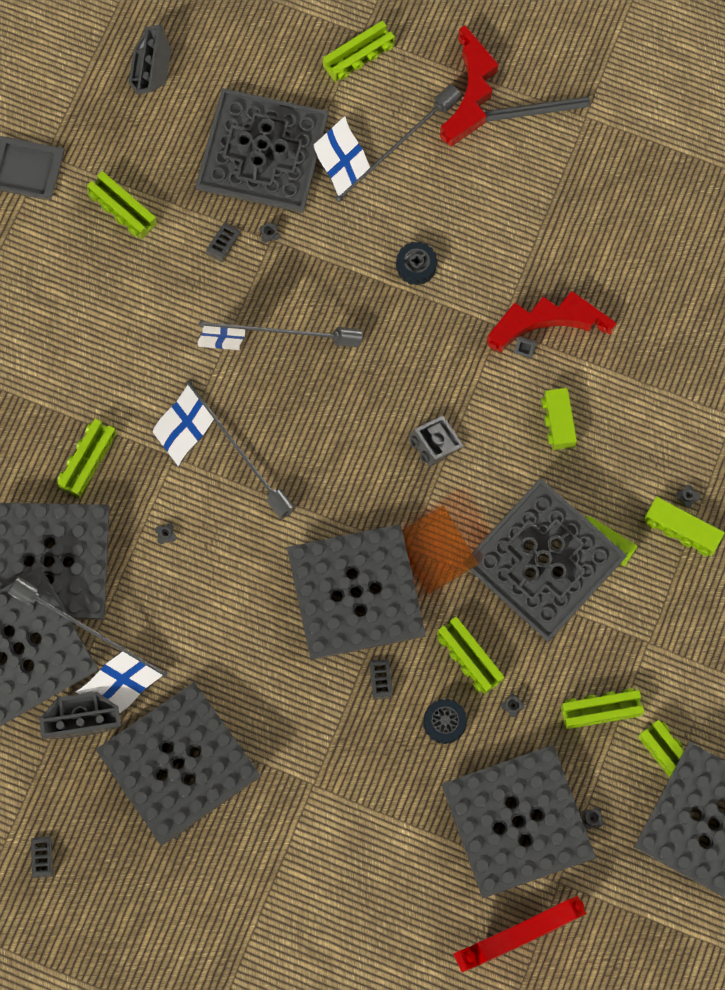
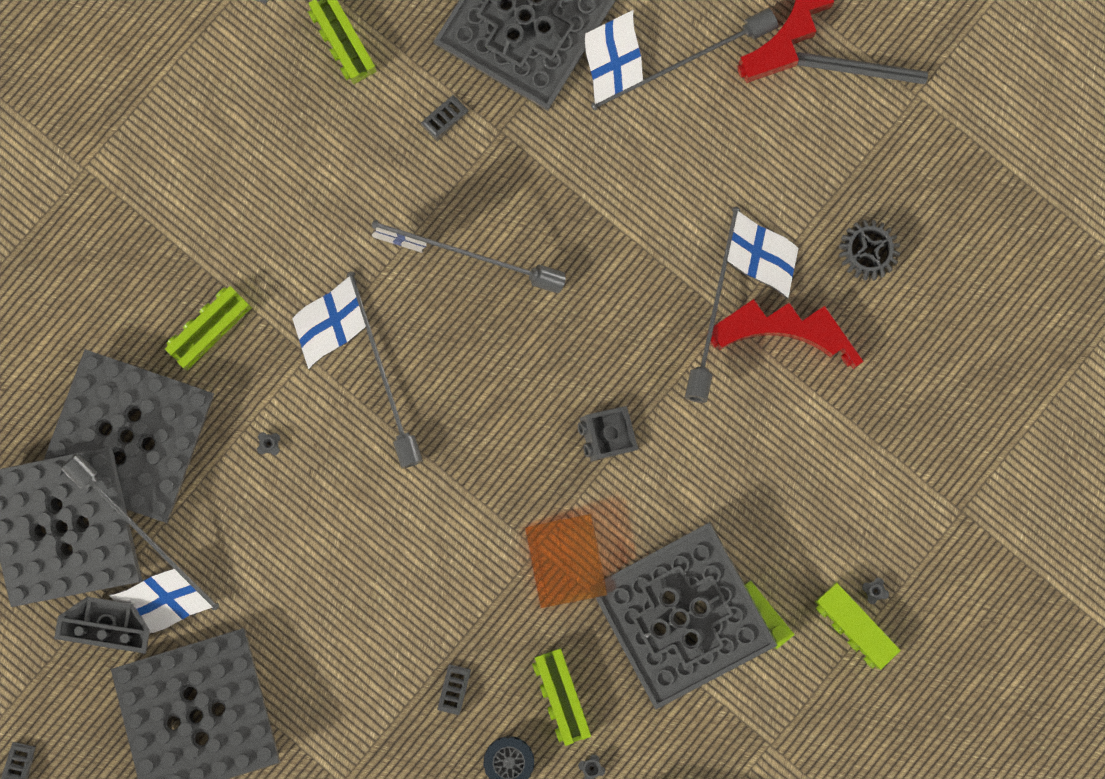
camera: 25 degrees right, 10 degrees up
(264, 229) = (505, 118): dark grey plate -> none
(379, 561) = (426, 546): dark grey plate -> none
(416, 263) = (657, 213): black wheel -> none
(508, 271) = (759, 256): none -> flag
(525, 347) = (748, 354): dark grey slope -> none
(559, 419) = (758, 452): lime brick -> none
(582, 229) = (865, 241): none -> dark grey gear

